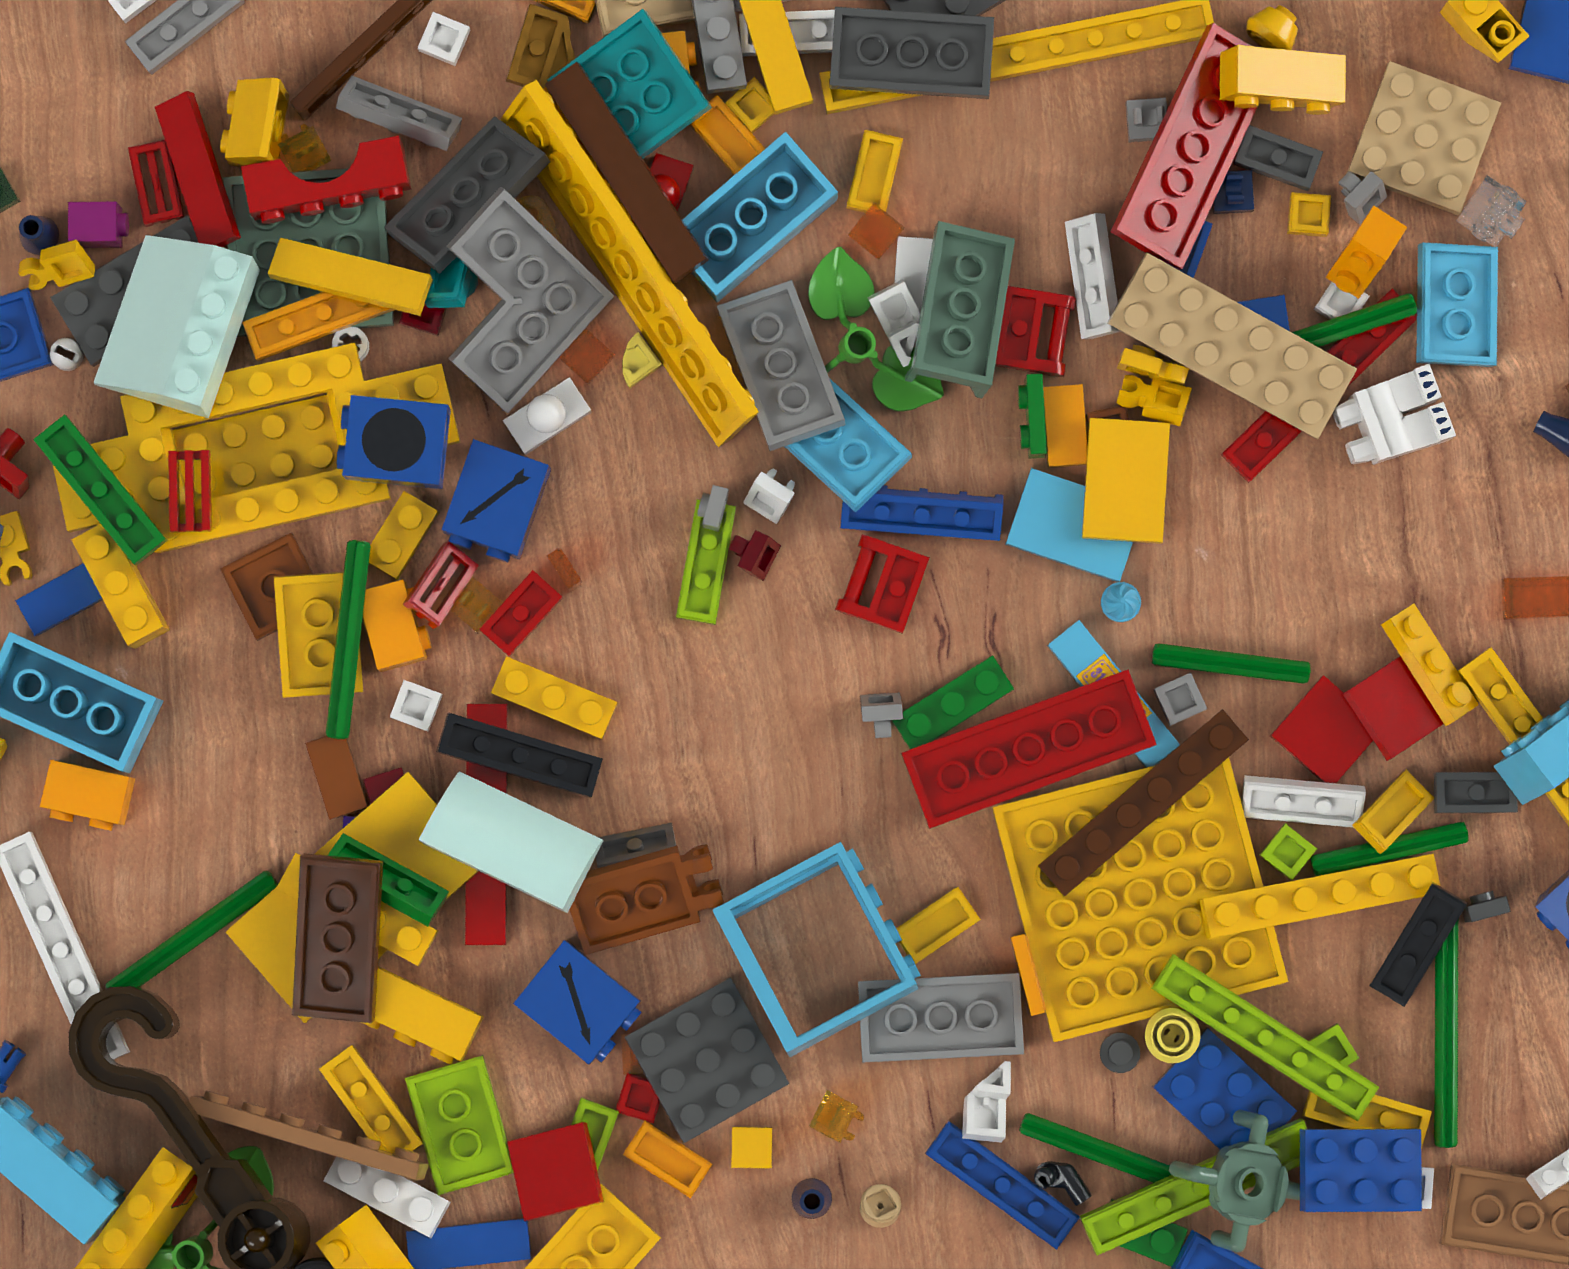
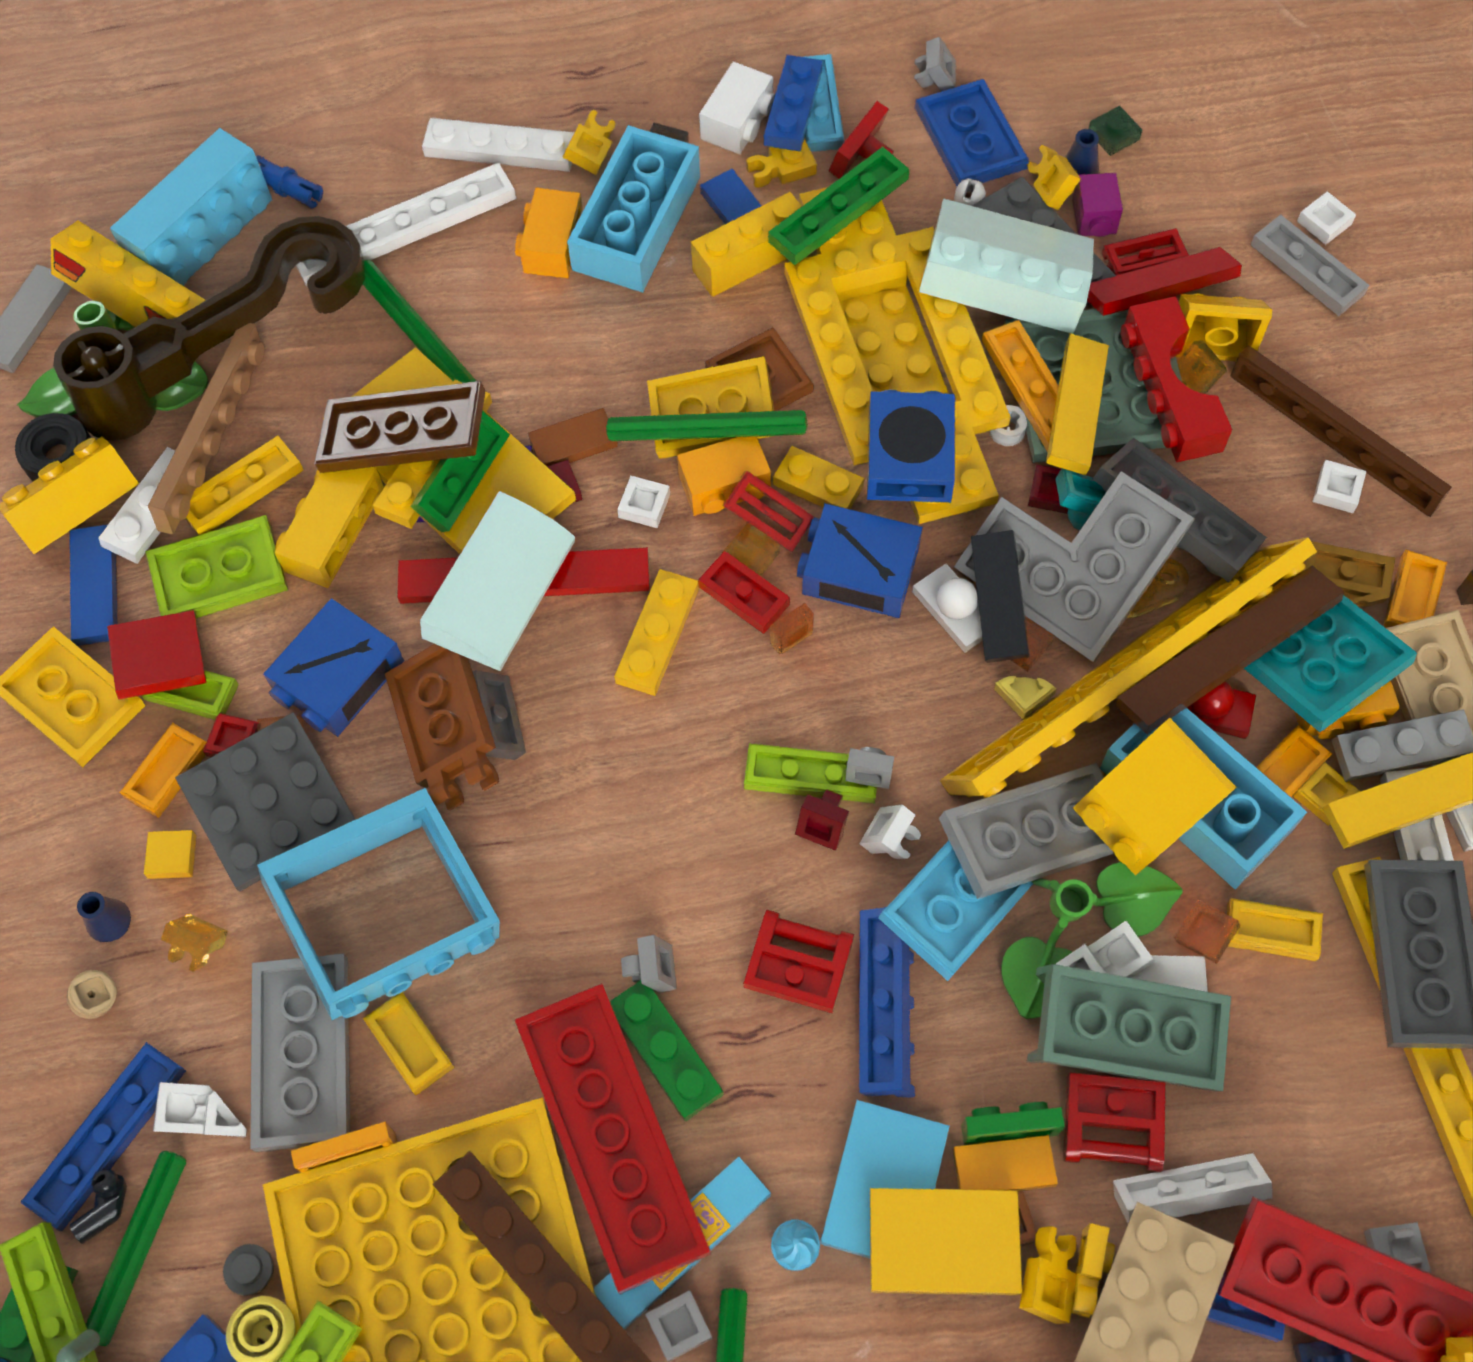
camera: 90 degrees right, 20 degrees down
(174, 499) = (845, 273): red tile -> none
(398, 113) = (1253, 449): light grey plate -> none
(519, 755) = (592, 594): black plate -> none
(549, 373) = (1000, 596): none -> black tile
(772, 266) = (1153, 796): none -> yellow slope

